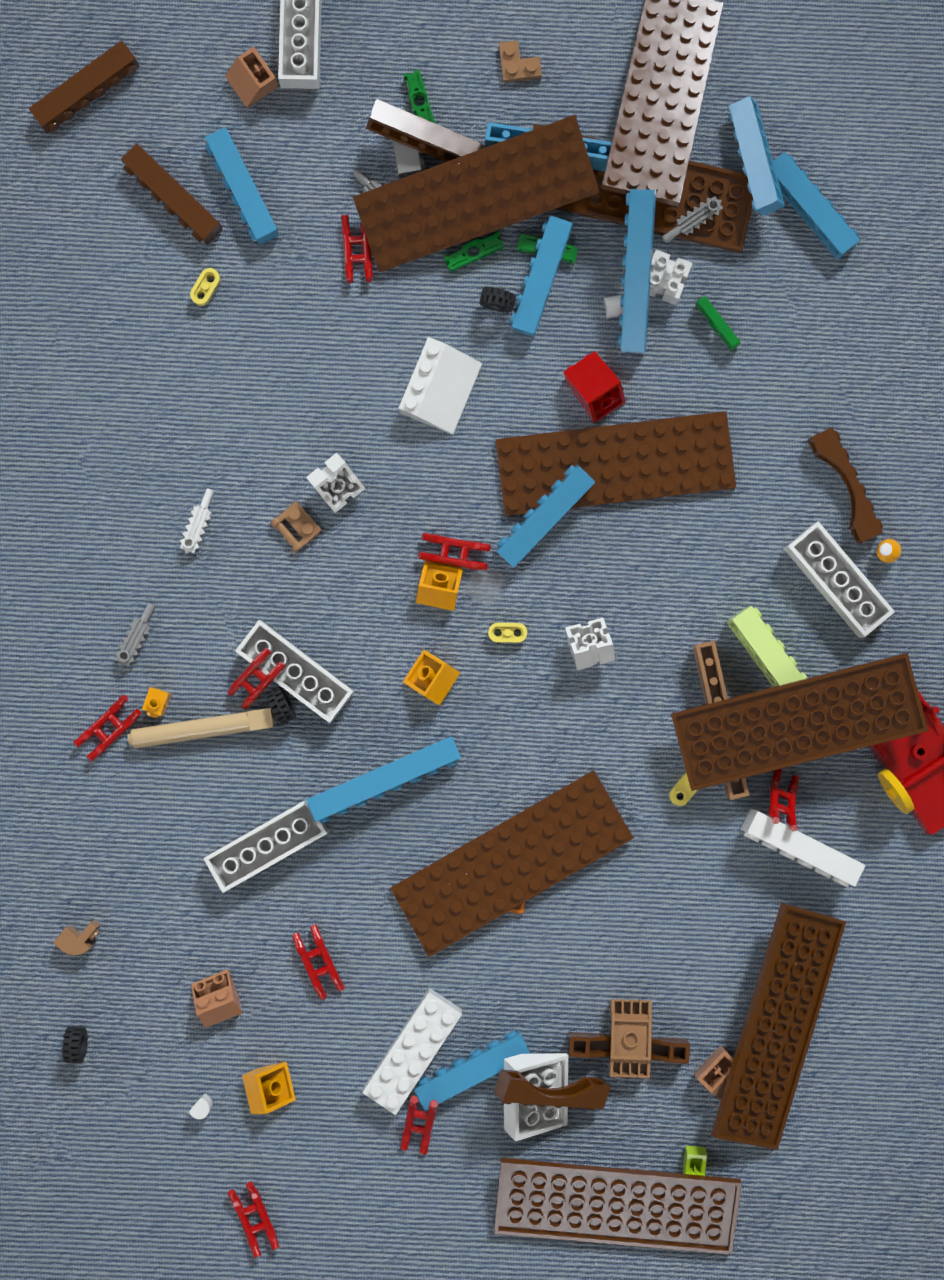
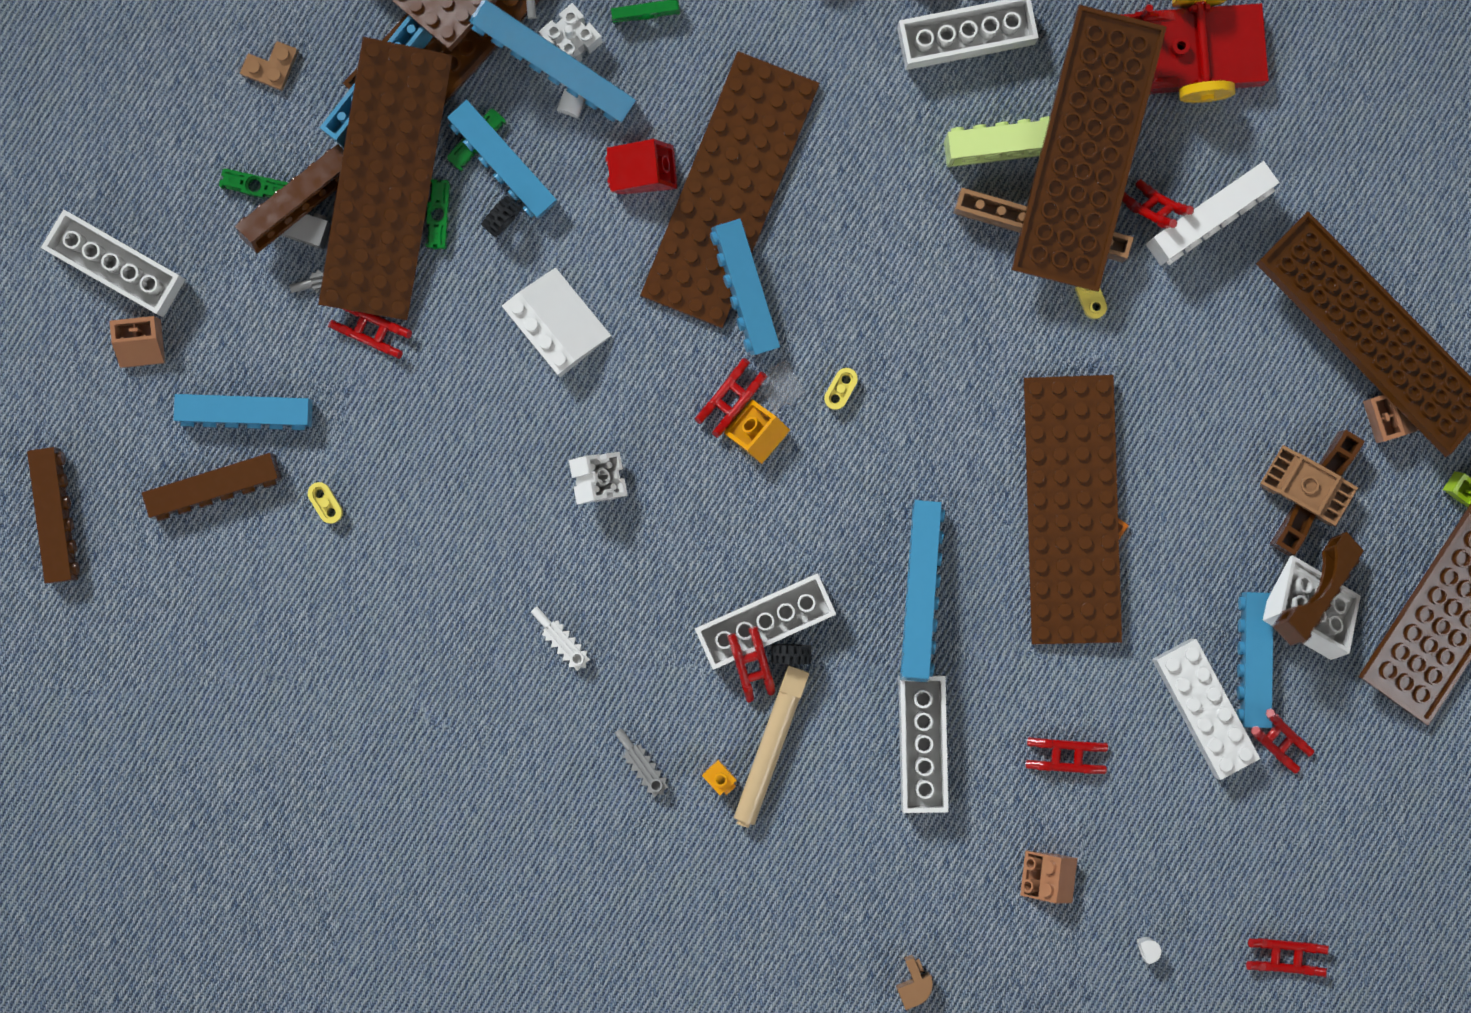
camera: 55 degrees left, 0 degrees up
(107, 740) = (730, 849): red piece -> none
(268, 1088) = (1165, 872): light orange slope -> none
(302, 524) = (618, 535): medium nougat plate -> none
(431, 677) = (844, 488): light orange slope -> none
(590, 644) = (898, 312): white brick -> none

